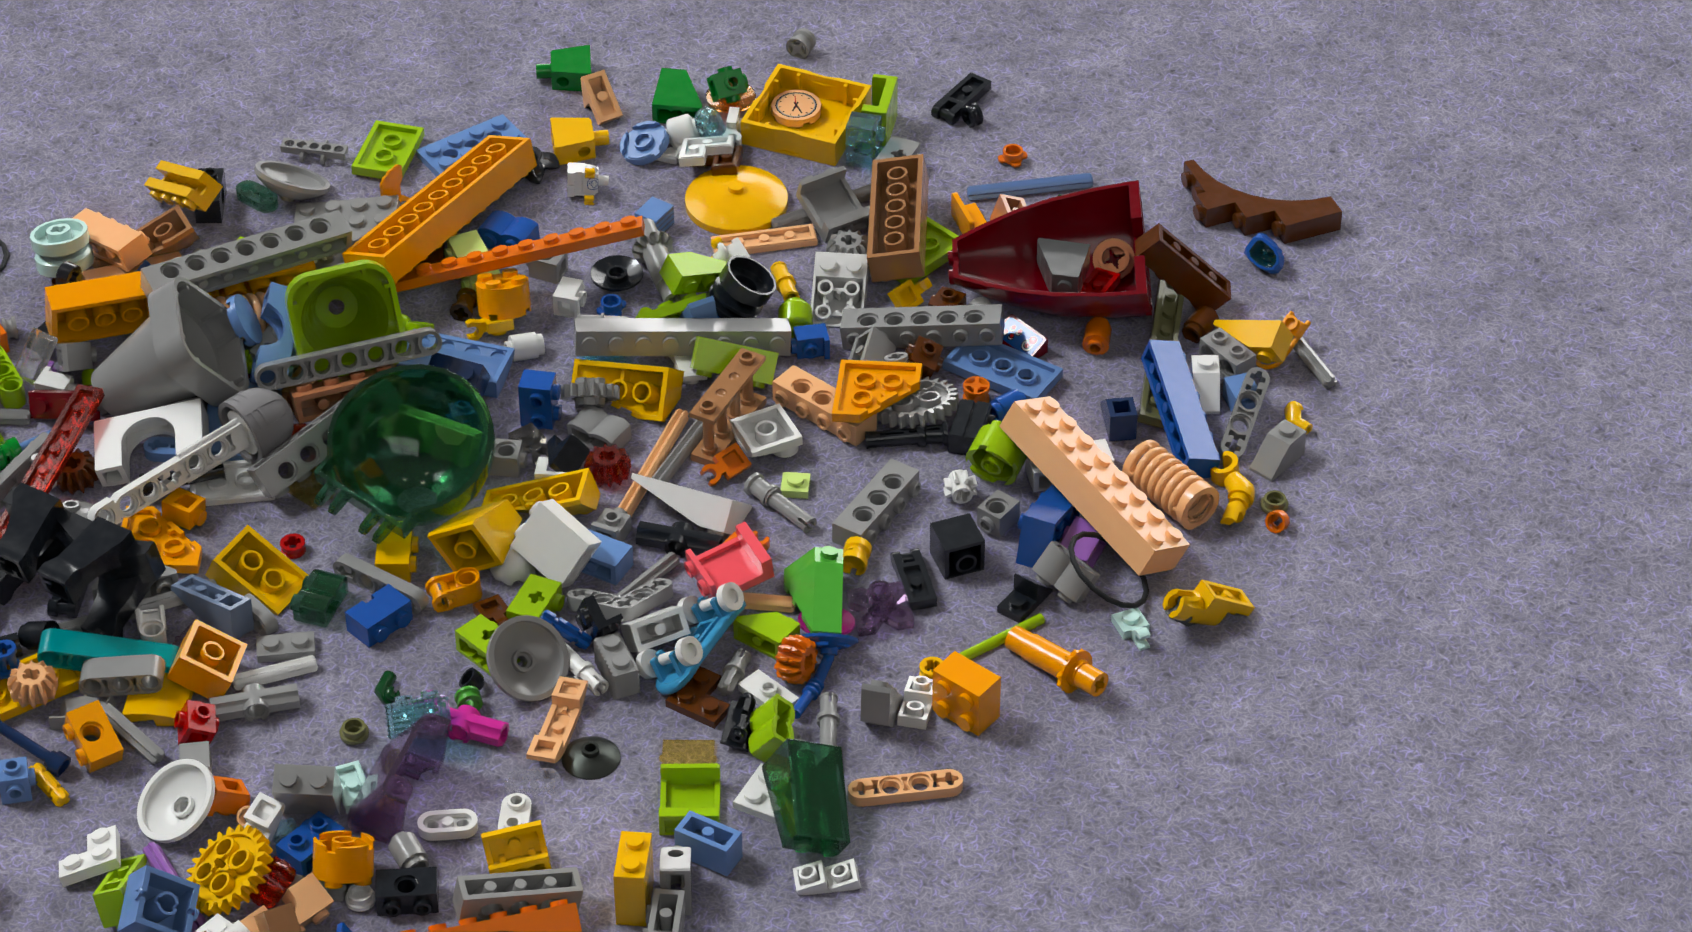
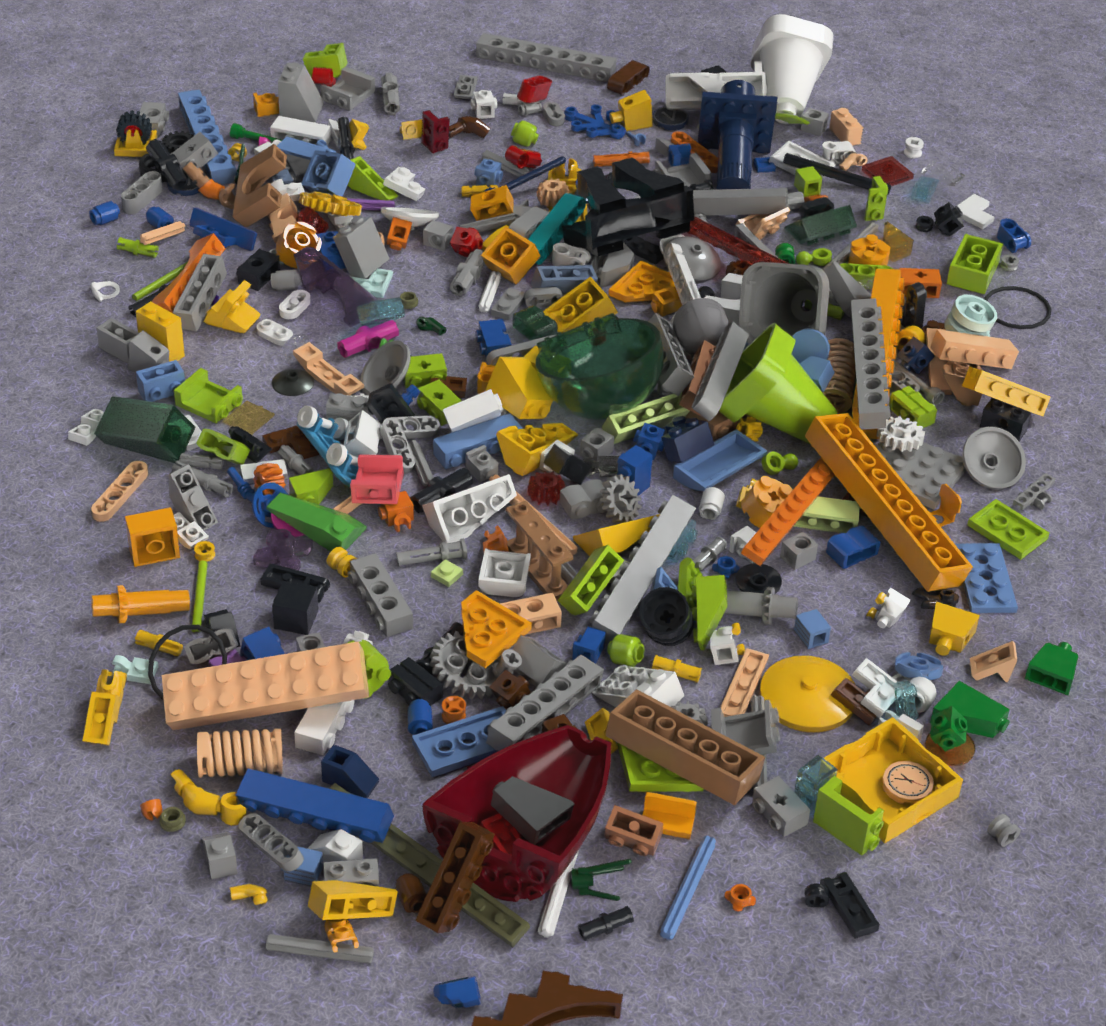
camera: 120 degrees right, 0 degrees up
(1087, 629) = (149, 640): none -> yellow axle

